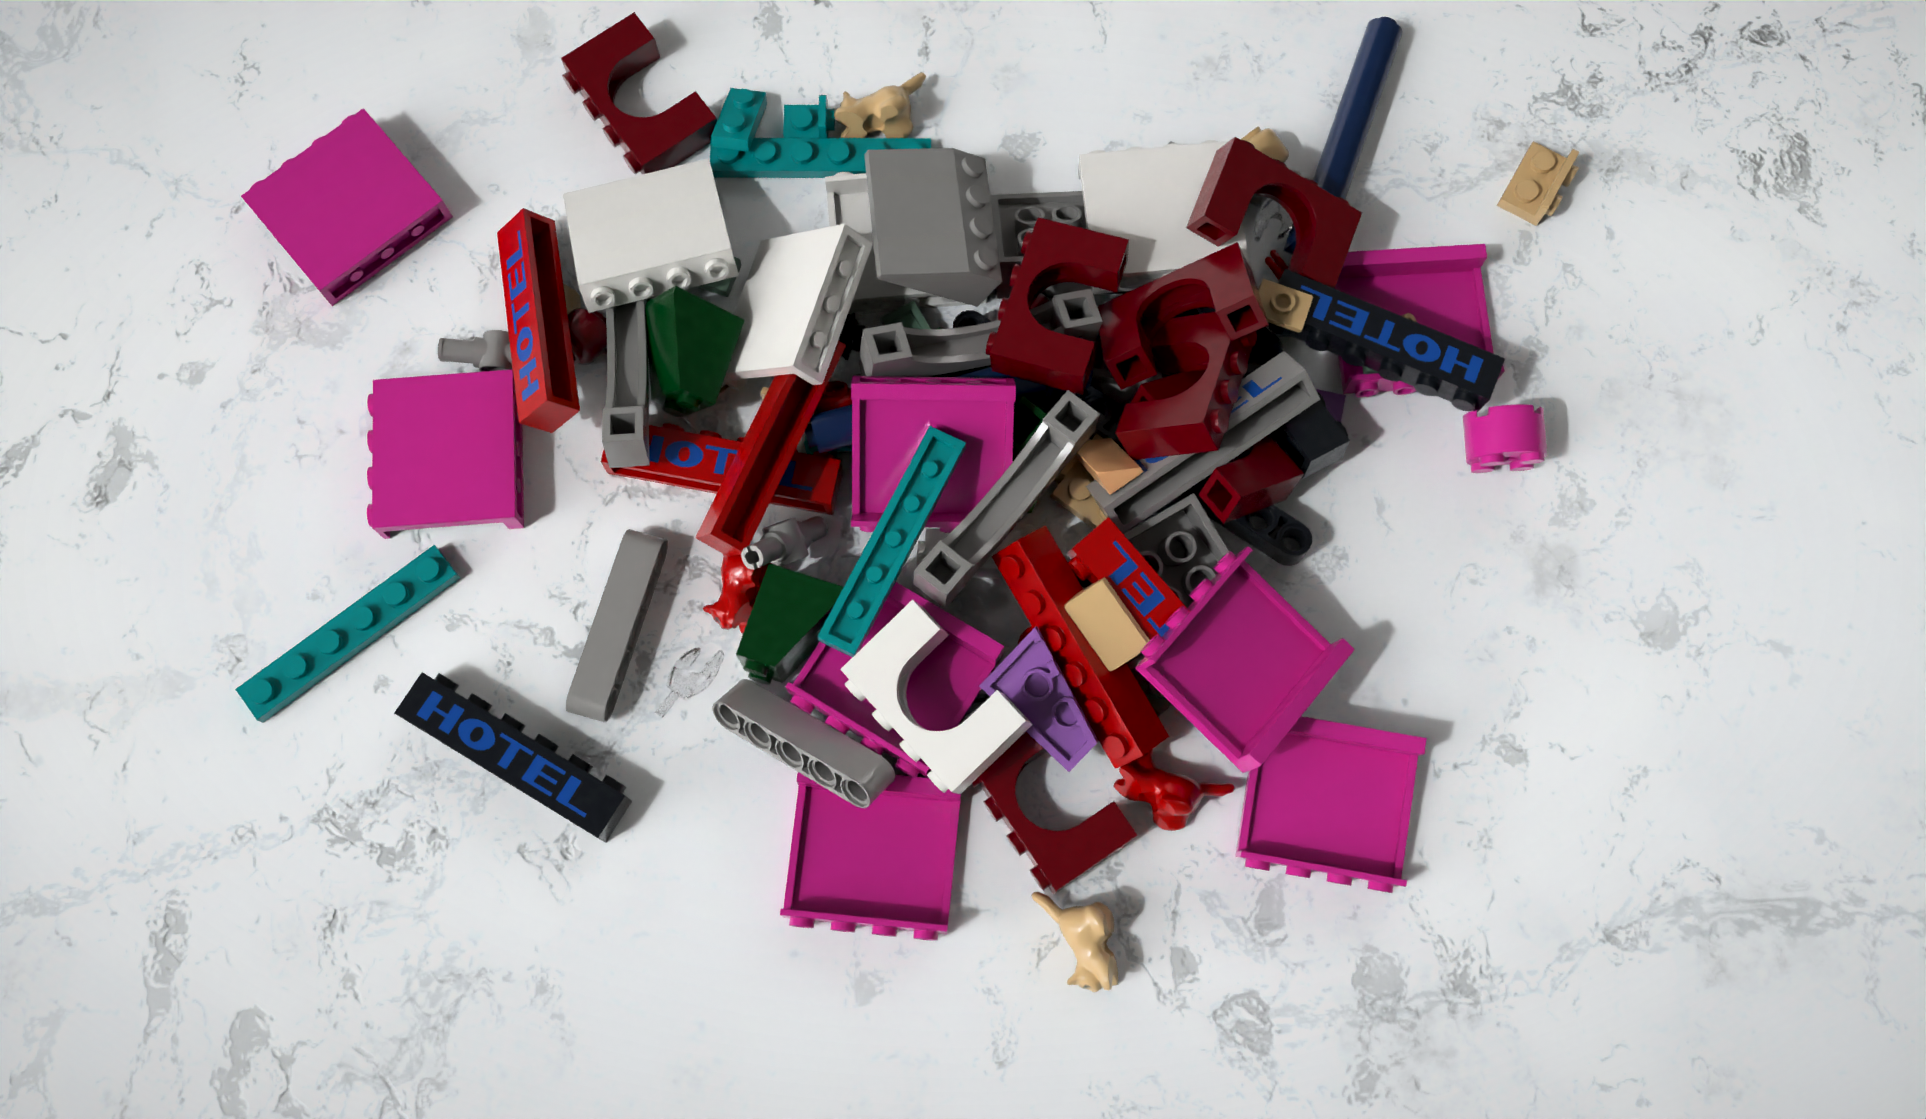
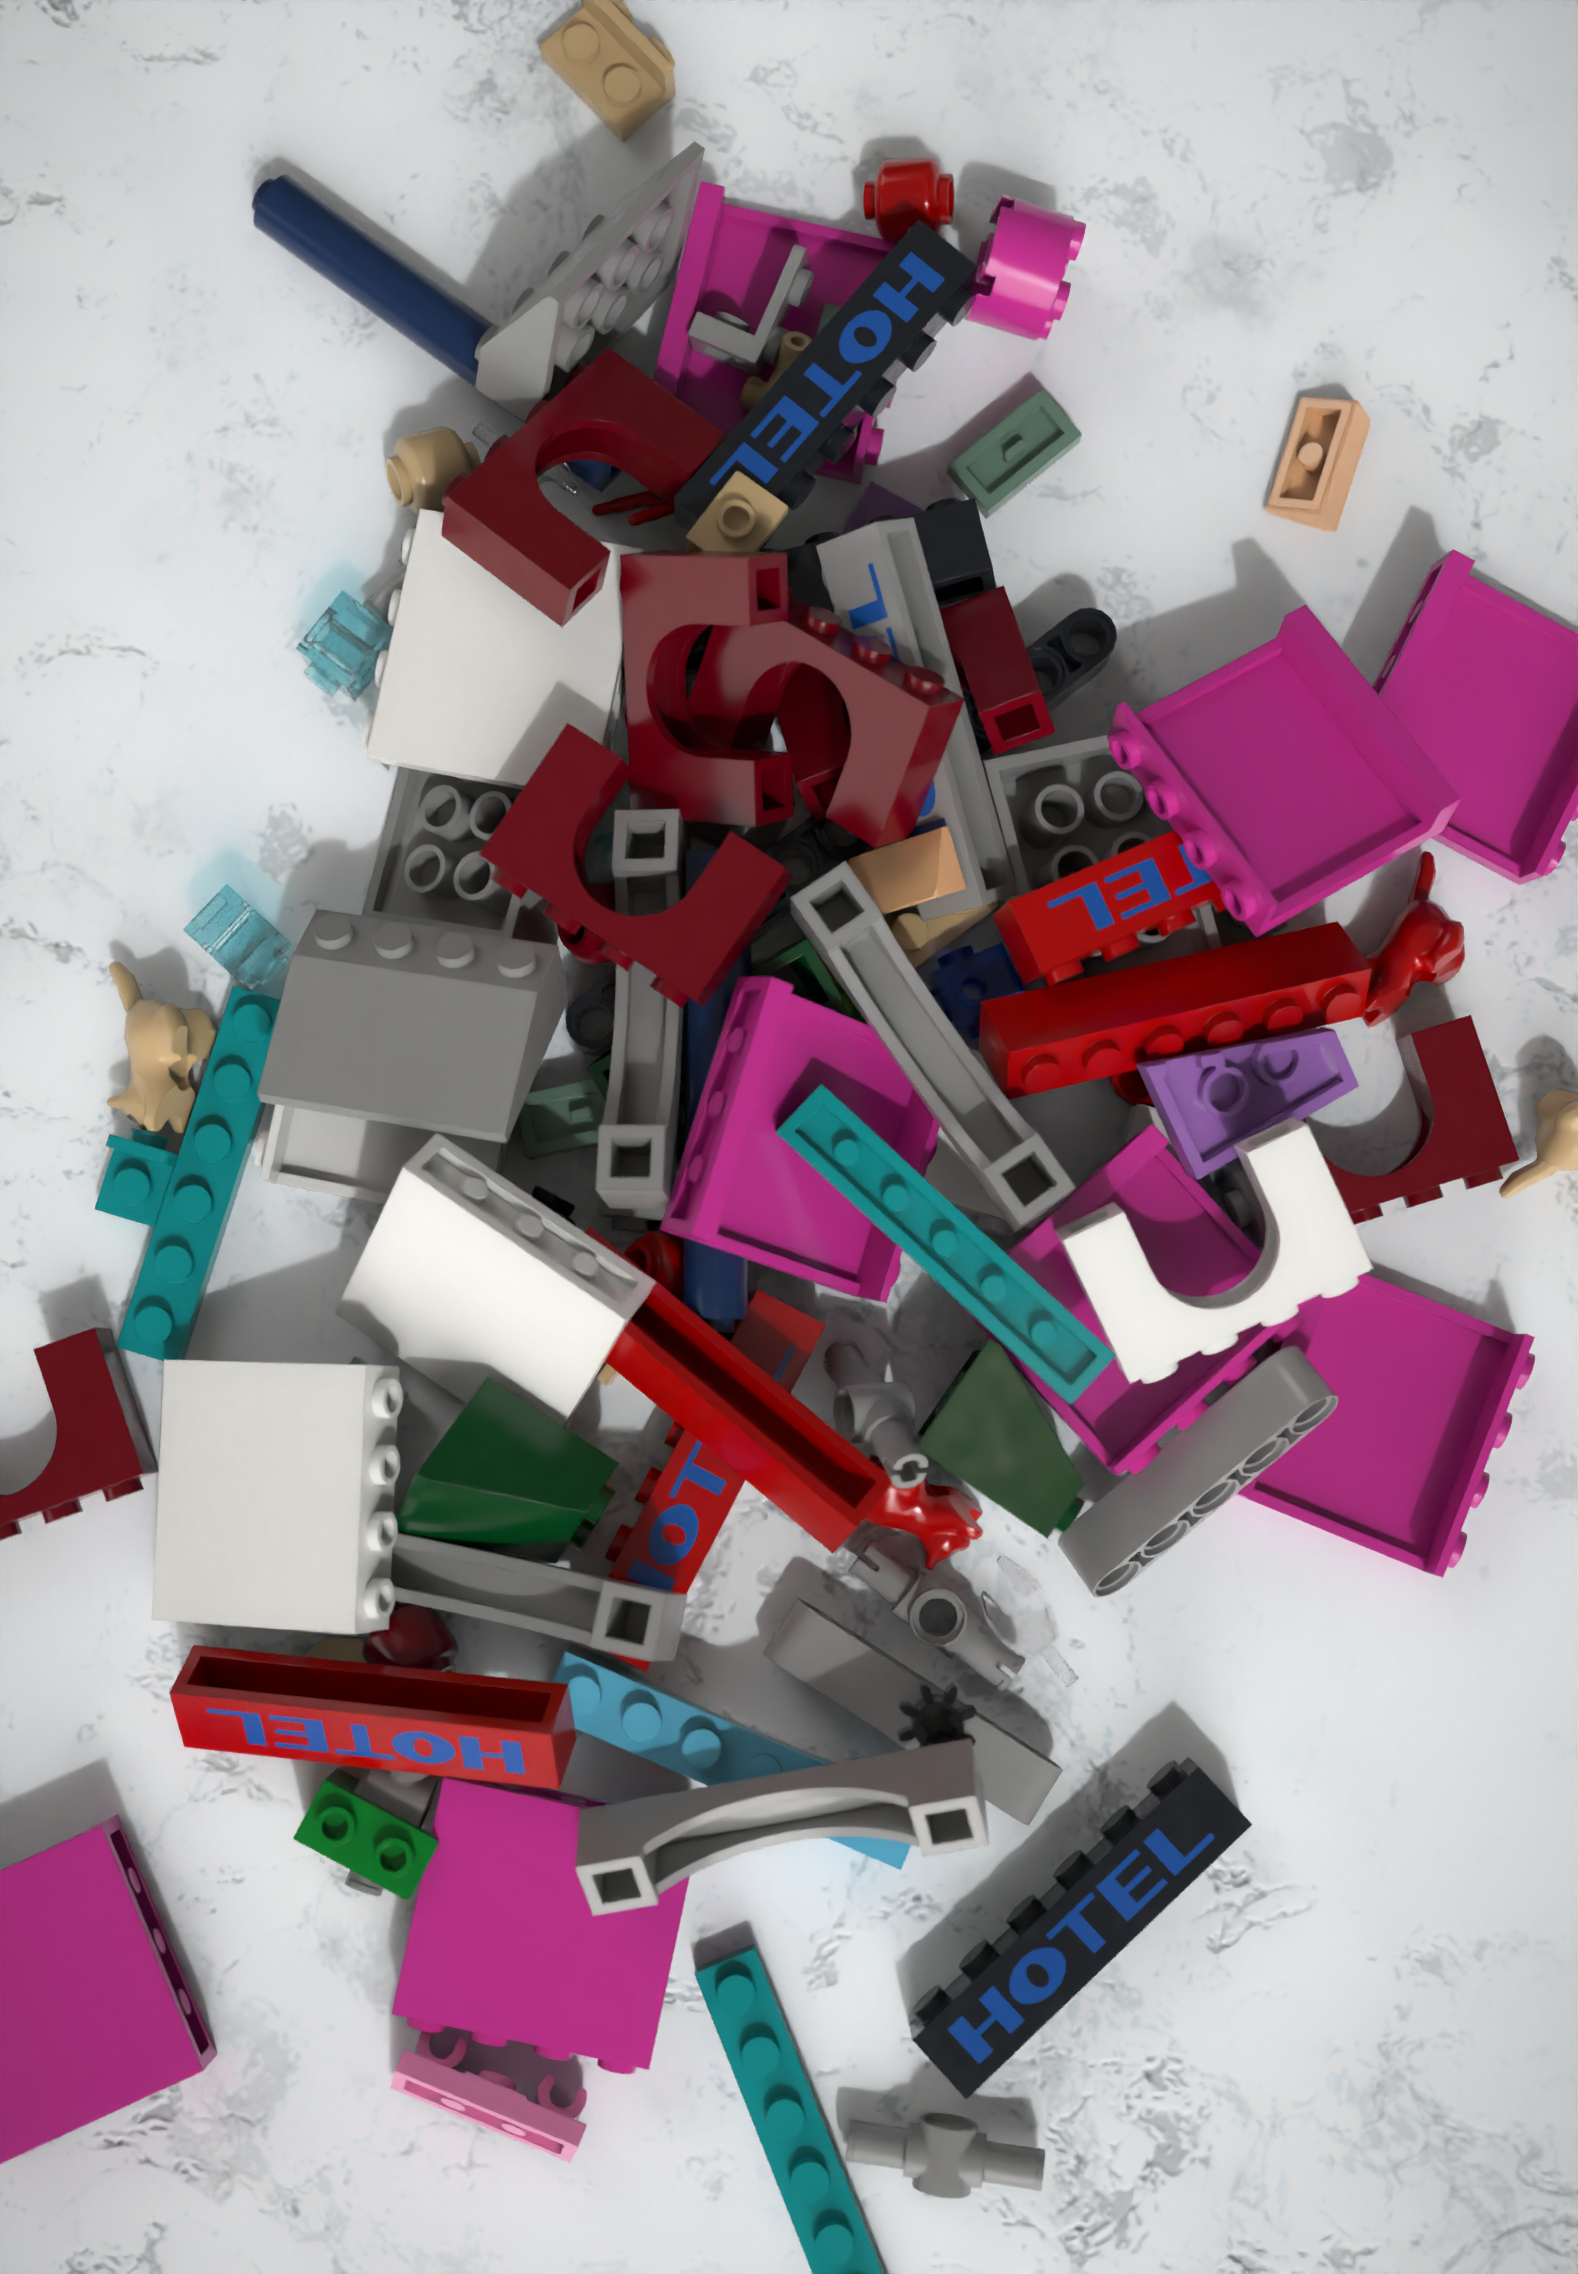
camera: 75 degrees left, 10 degrees up
(338, 452) = (491, 2099): none -> bright pink plate
(359, 717) = (945, 2155): none -> light grey pin
(469, 336) = (366, 1836): none -> green bracket
(553, 581) = (685, 1736): none -> medium azure arch
(562, 618) = (908, 1796): none -> light grey arch
(605, 619) = (931, 1705): none -> black gear
(671, 640) = (961, 1638): none -> light grey pin
(739, 119) = (101, 1290): teal plate -> none
(960, 127) = (240, 938): none -> clear light blue brick
(1062, 524) = (985, 971): none -> clear blue brick
(1106, 624) = (1166, 958): tan slope -> none
(1142, 131) = (344, 647): none -> clear light blue brick
(1393, 471) = (1014, 453): none -> sand green plate
(1396, 197) = (592, 291): none -> light grey slope
(1398, 300) = (728, 337): none -> light grey bracket
(1457, 657) = (1319, 462): none -> light nougat slope
(1525, 367) = (908, 192): none -> red head

